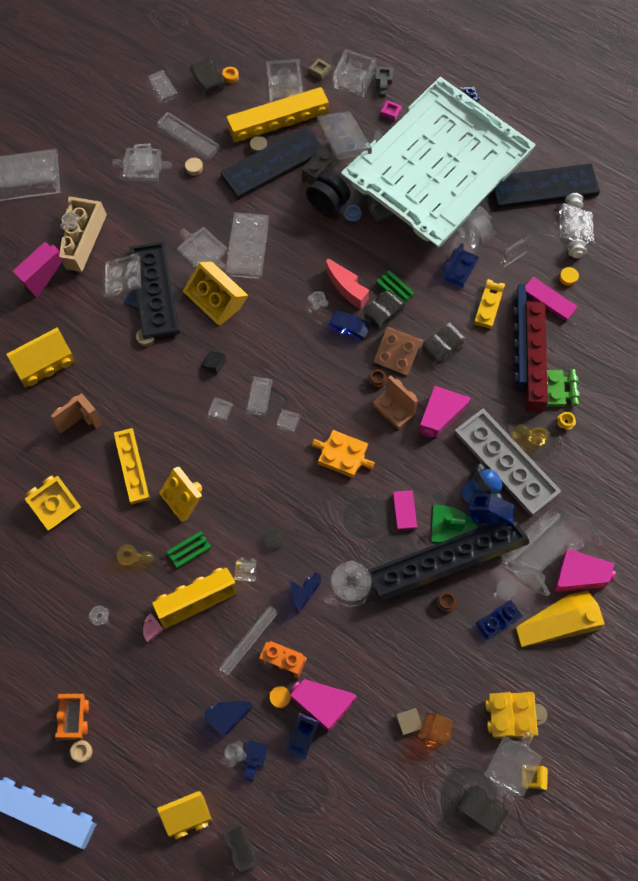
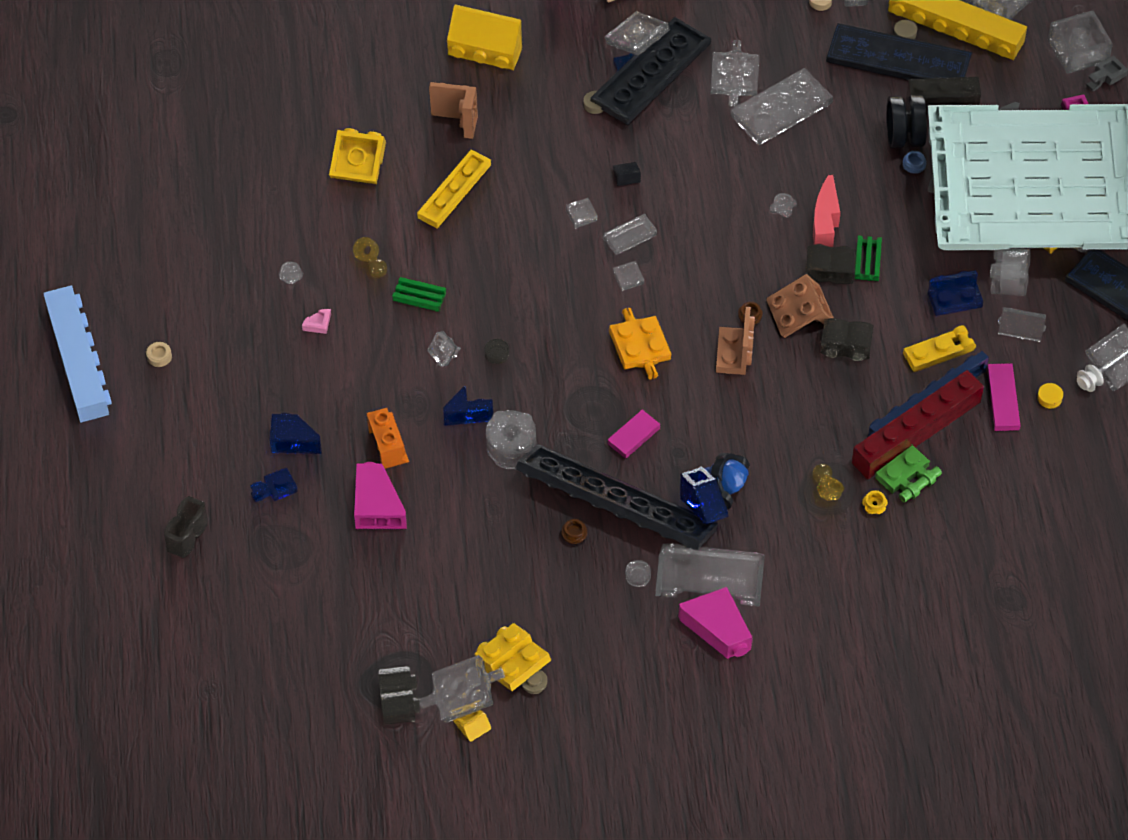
camera: 50 degrees right, 10 degrees down
(71, 717) = (181, 322): orange window -> none
(181, 494) = (463, 242): yellow plate -> none
(185, 815) = (176, 463): yellow slope -> none
(195, 597) = (375, 329): yellow slope -> none
(214, 292) = (699, 116): yellow slope -> none
(230, 752) = (265, 465): clear plate -> none
(248, 640) = (378, 402): clear axle -> none
(280, 697) = (347, 465): light orange tile -> none
(302, 736) = (331, 501): clear blue slope -> none
(320, 69) = (1055, 12): dark tan tile -> none
(344, 135) = (983, 80): clear tile -> none
(345, 322) = (784, 248): clear blue slope -> none
(409, 721) = (426, 583): dark tan tile -> none
(436, 730) = (436, 605): clear orange brick -> none
(442, 411) = (769, 389): dark pink slope -> none
(449, 523) = (659, 479): green shield -> none
(499, 620) = (599, 589): clear blue slope -> none
(502, 454) = (773, 482): light grey plate -> none
(566, 618) = (655, 643): yellow wedge -> none

